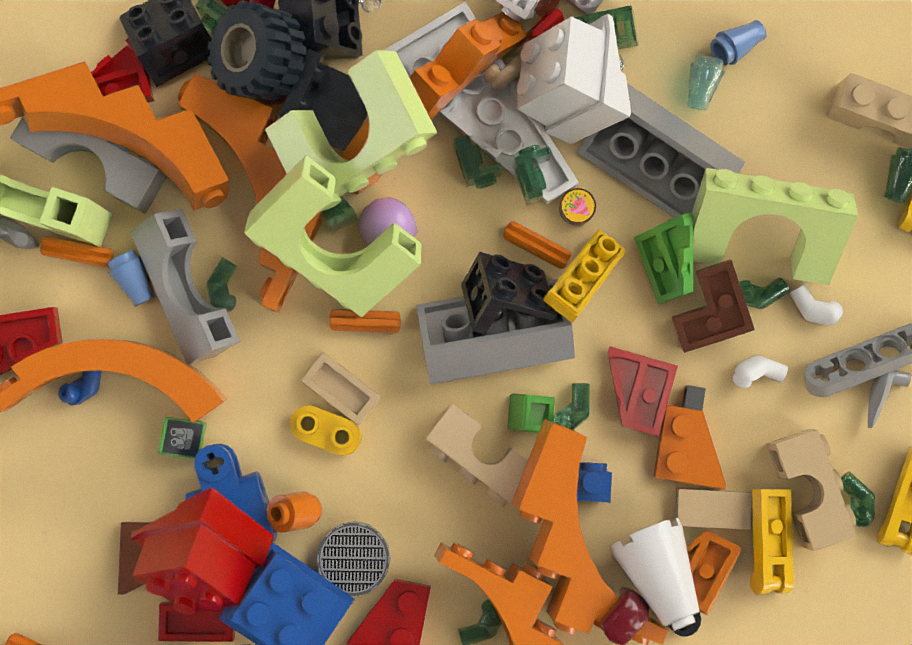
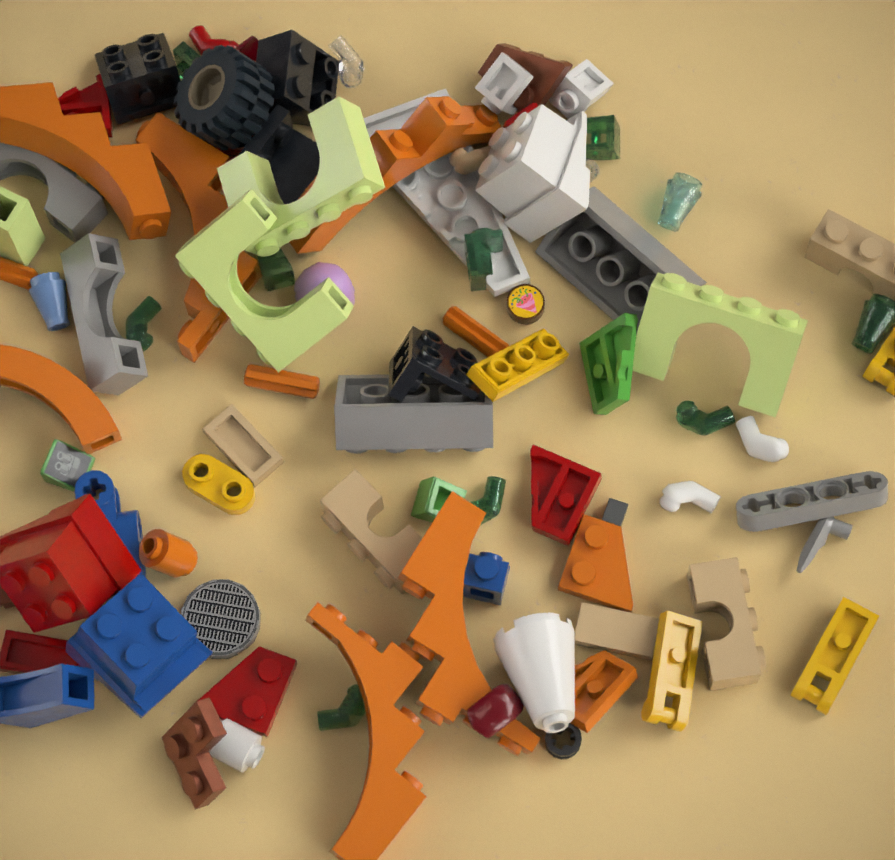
camera: 15 degrees right, 15 degrees down
(469, 159) = (424, 250): clear green bracket -> none
(724, 314) = (660, 428): copper plate -> none
(737, 42) = (720, 168): medium blue cone -> none
(861, 499) = (779, 648): clear green arm -> none

